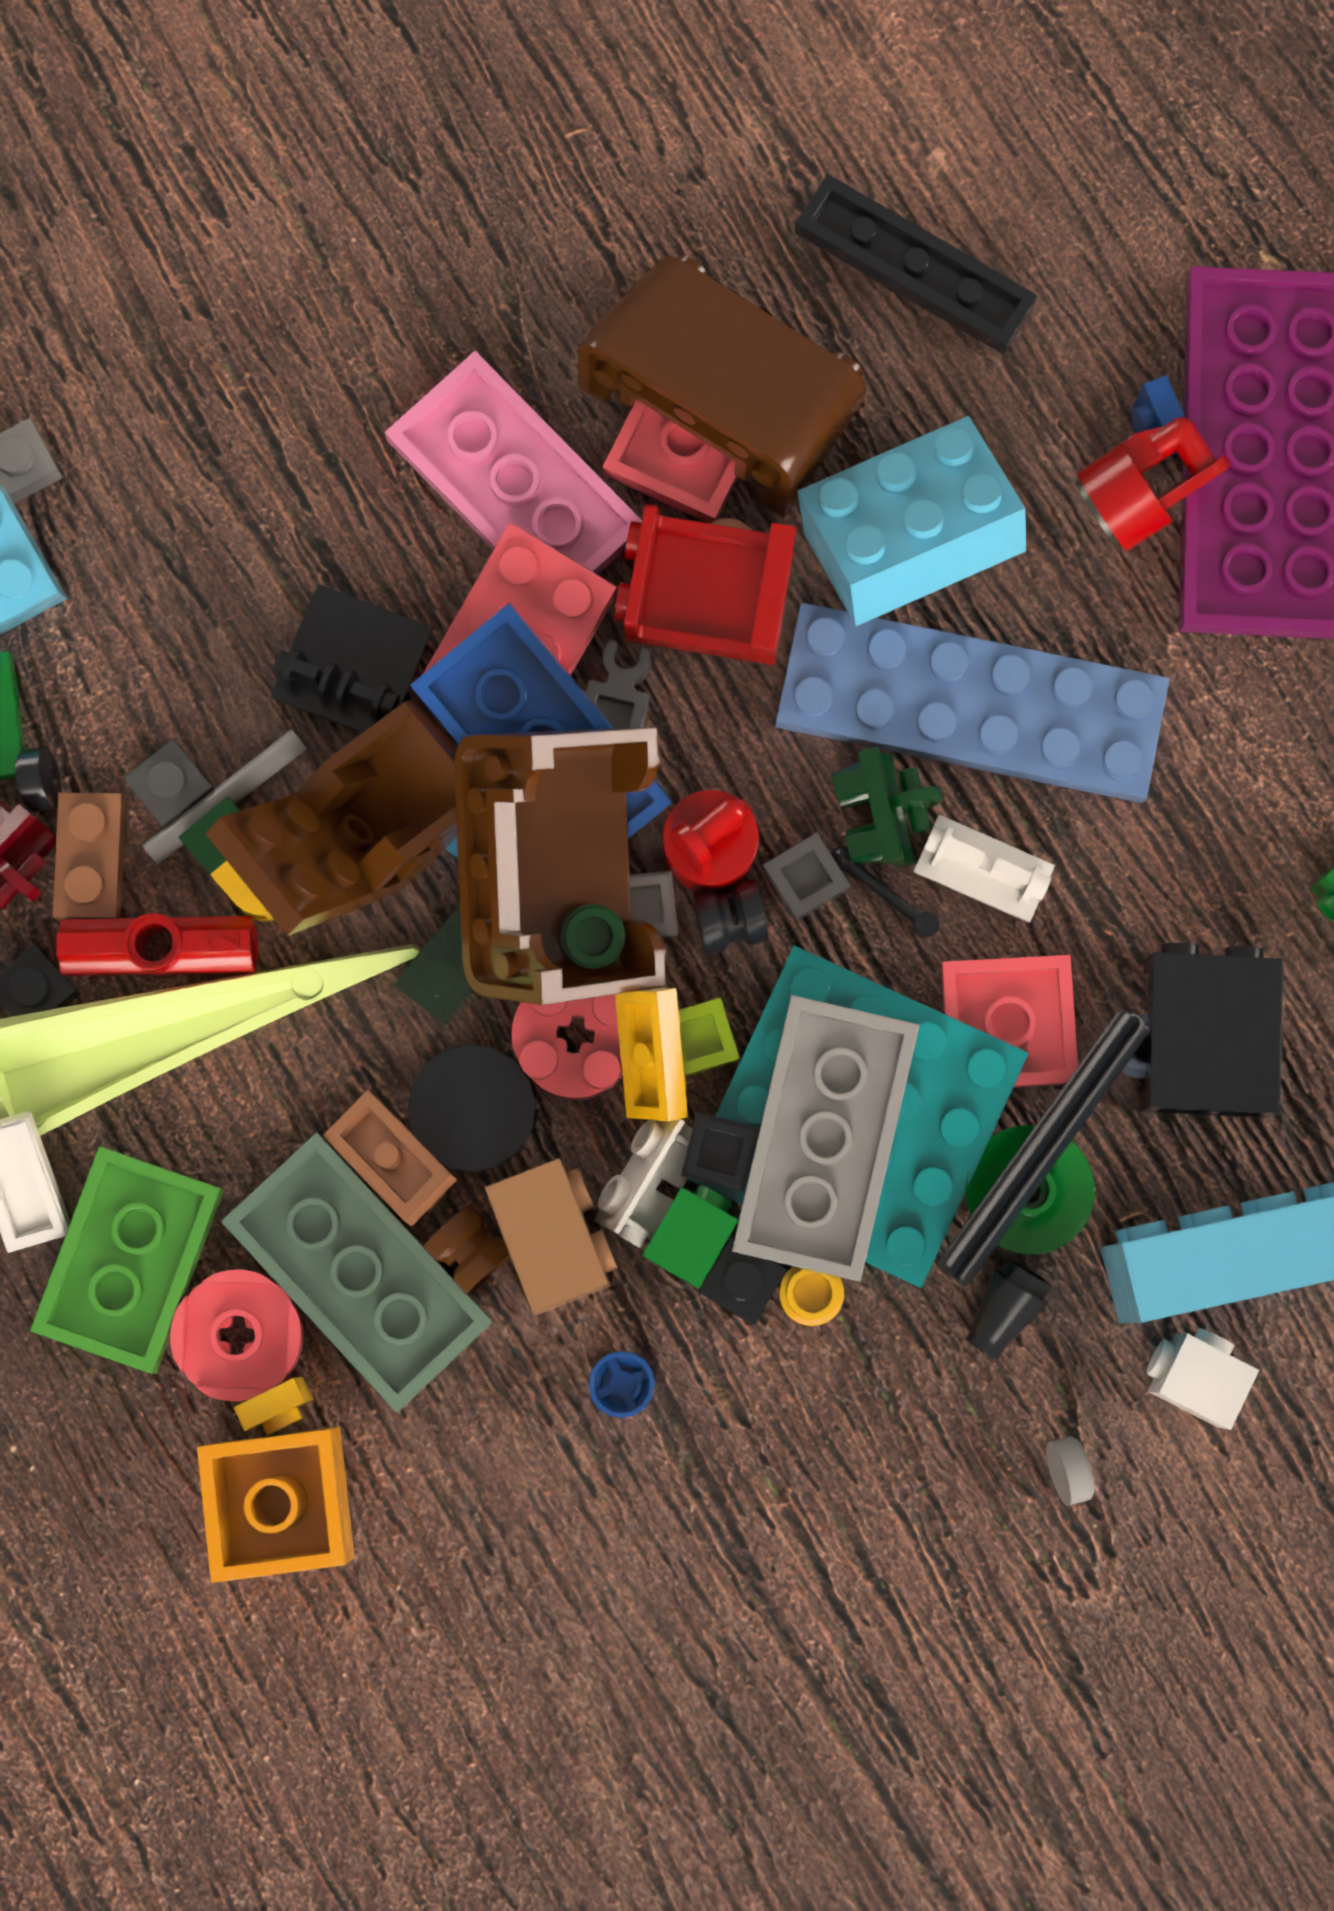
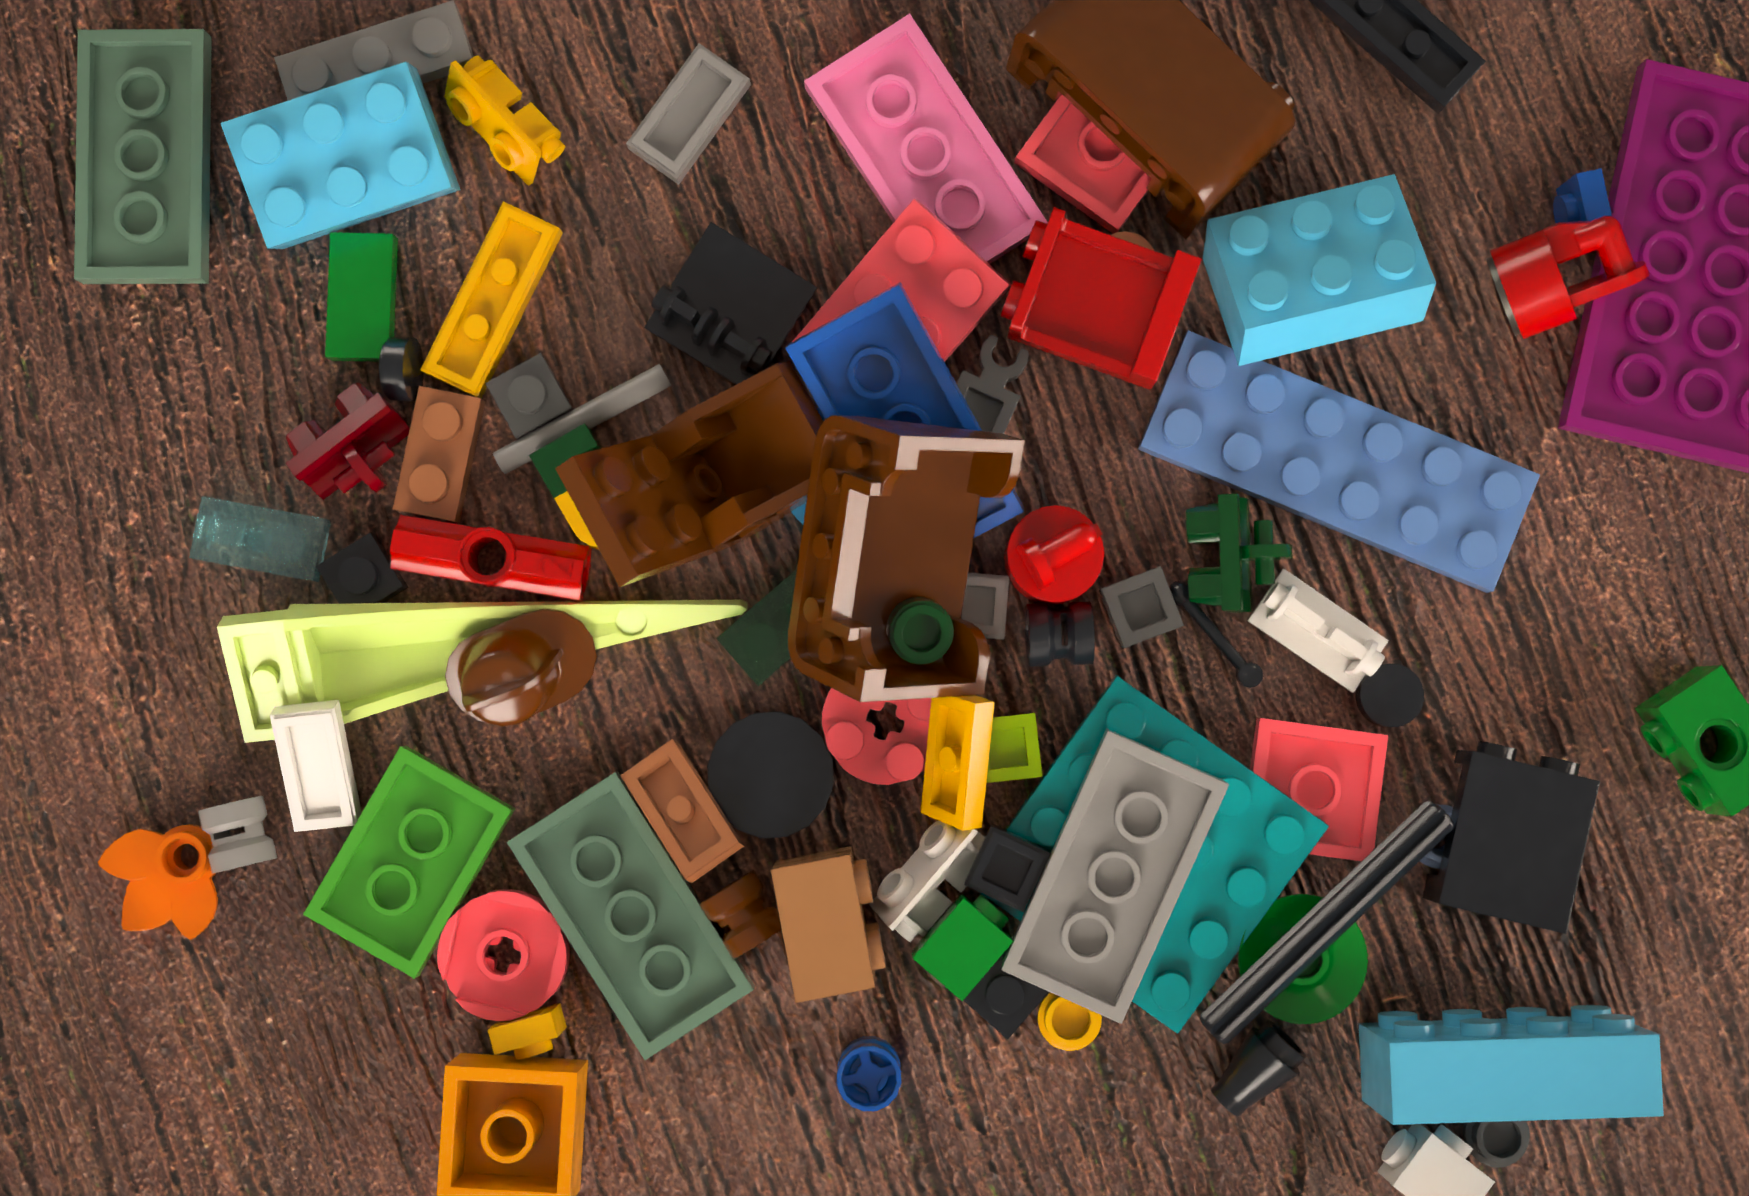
camera: 10 degrees right, 5 degrees up
(74, 506) = (481, 98): none -> yellow hinge
(116, 698) = (492, 300): none -> yellow tile
(205, 1048) = (521, 667): none -> reddish brown piece
(278, 485) = (688, 113): none -> light grey tile
(1066, 918) = (1390, 696): none -> black tile
(1256, 1329) = (1497, 1142): none -> dark grey plate

